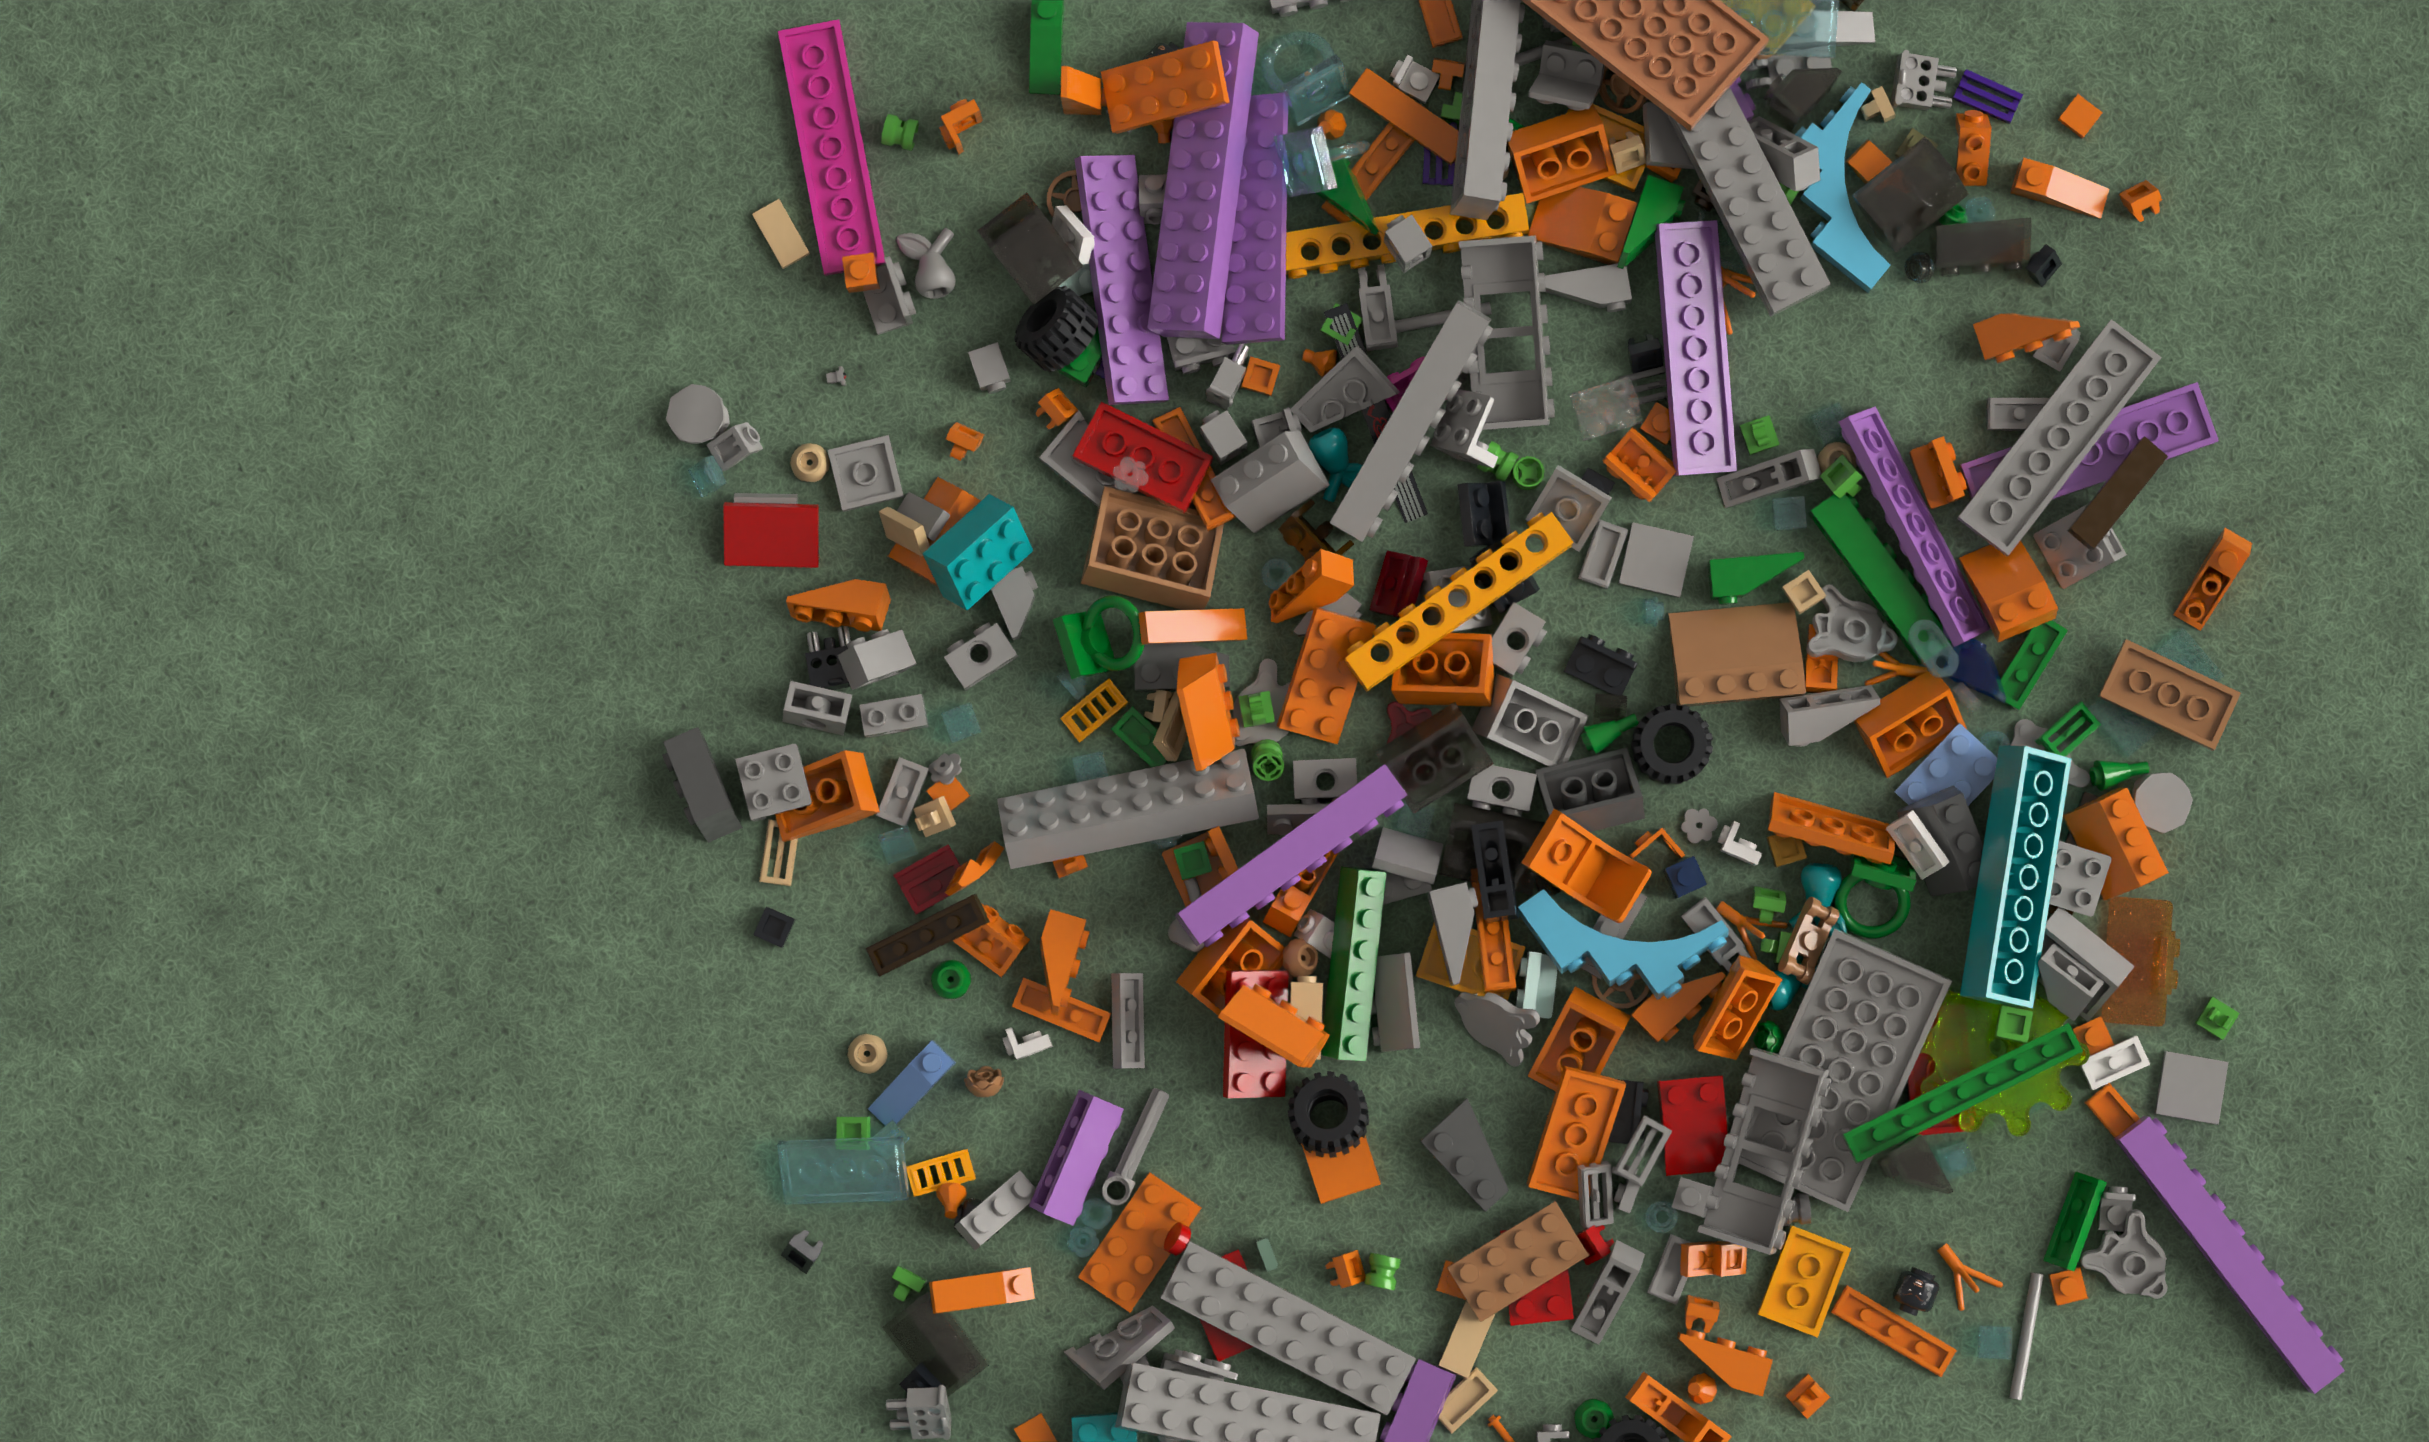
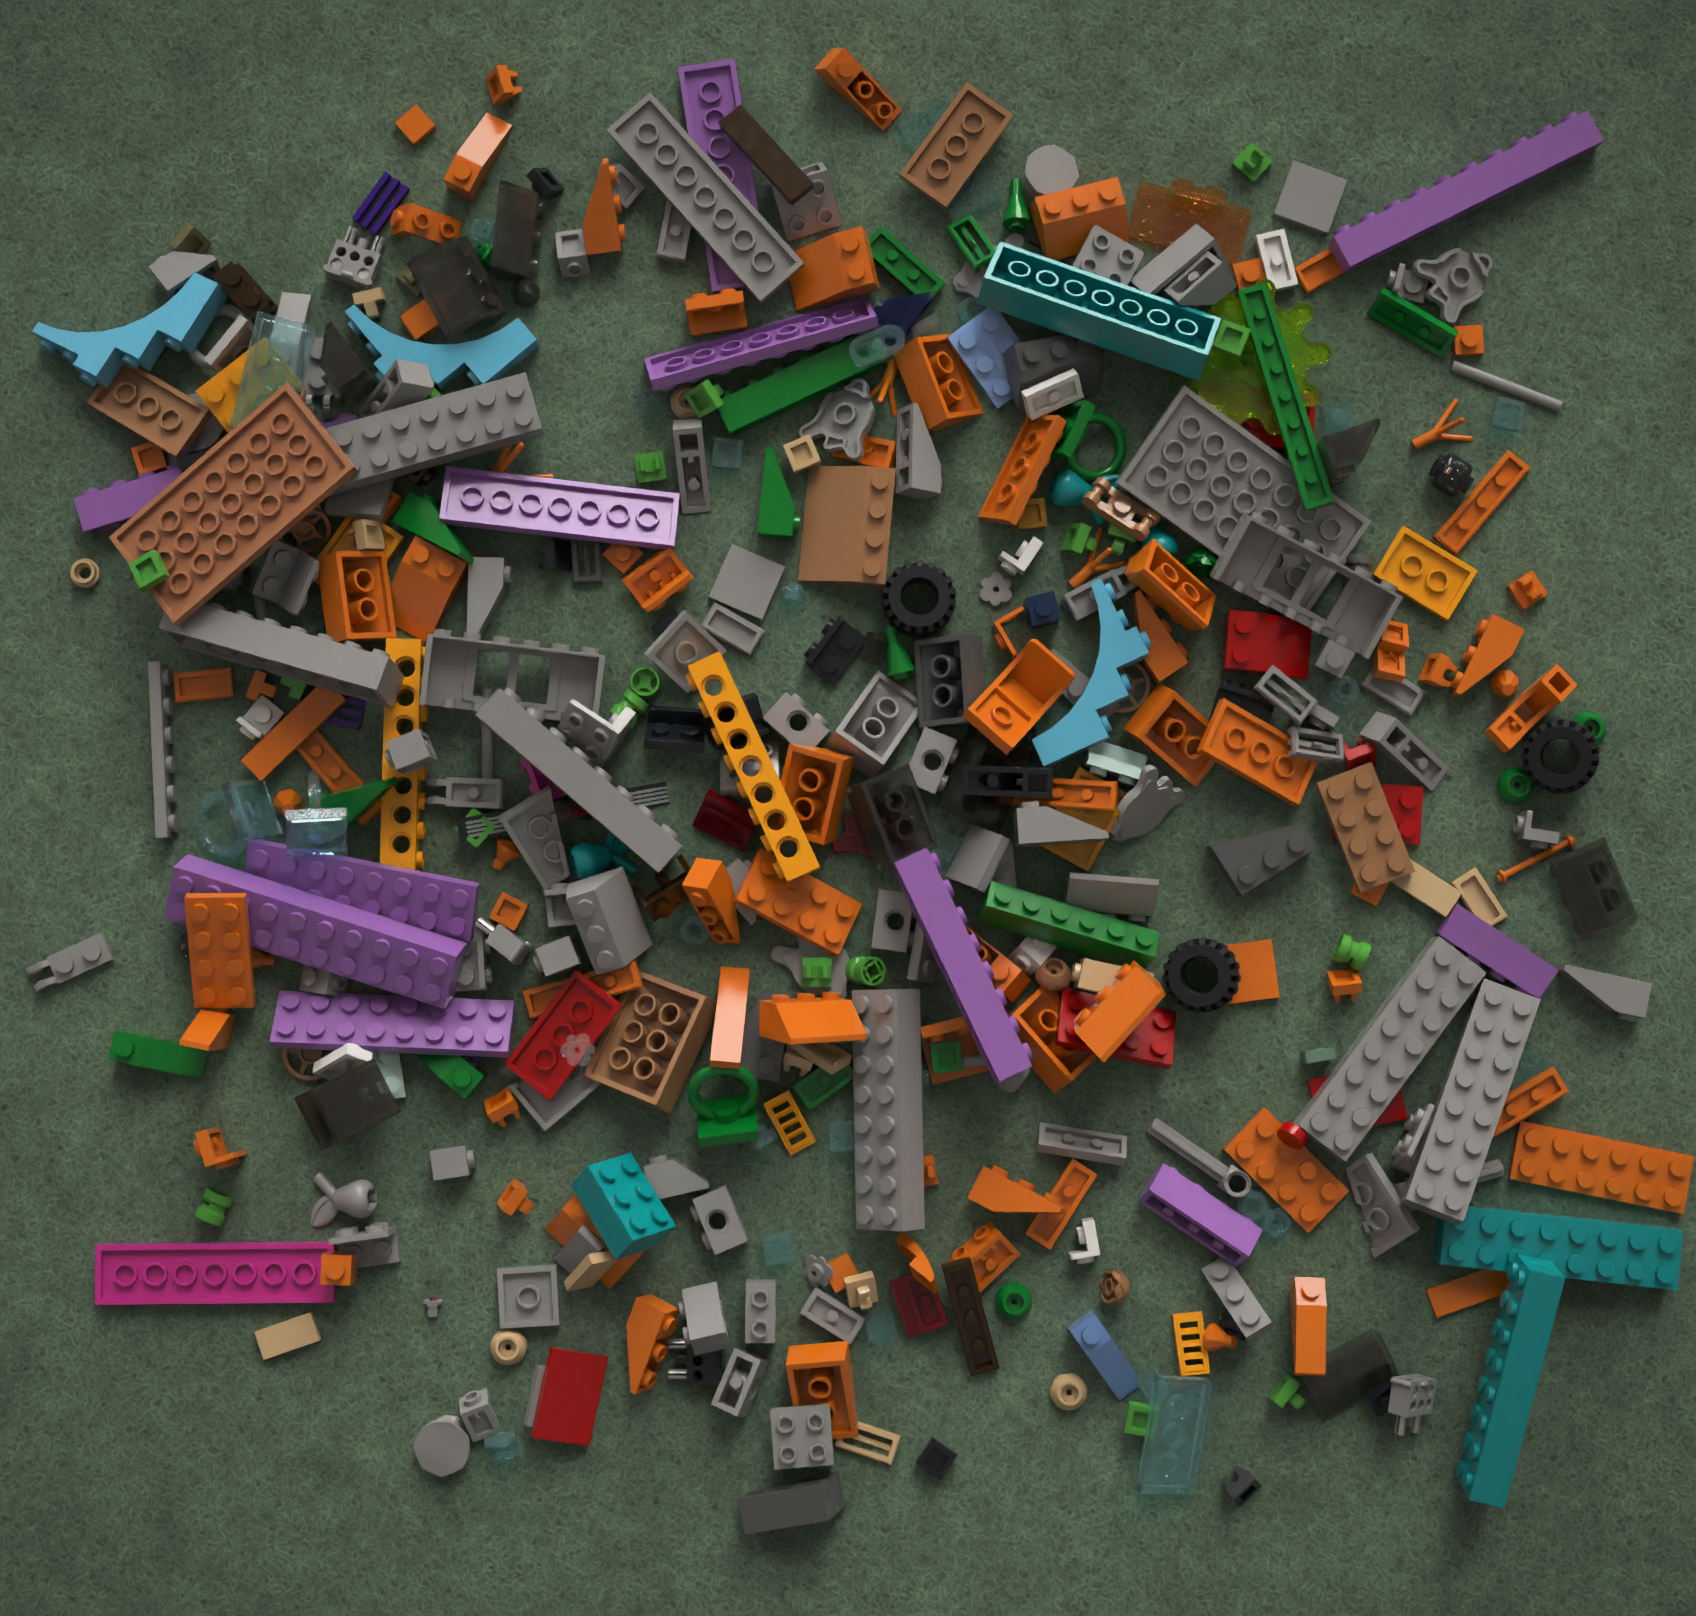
camera: 90 degrees left, 0 degrees up
(1056, 329) = (428, 1093): black tyre -> none
(1606, 408) = (599, 600): clear bracket -> none
(1973, 308) = (572, 253): none -> light grey bracket

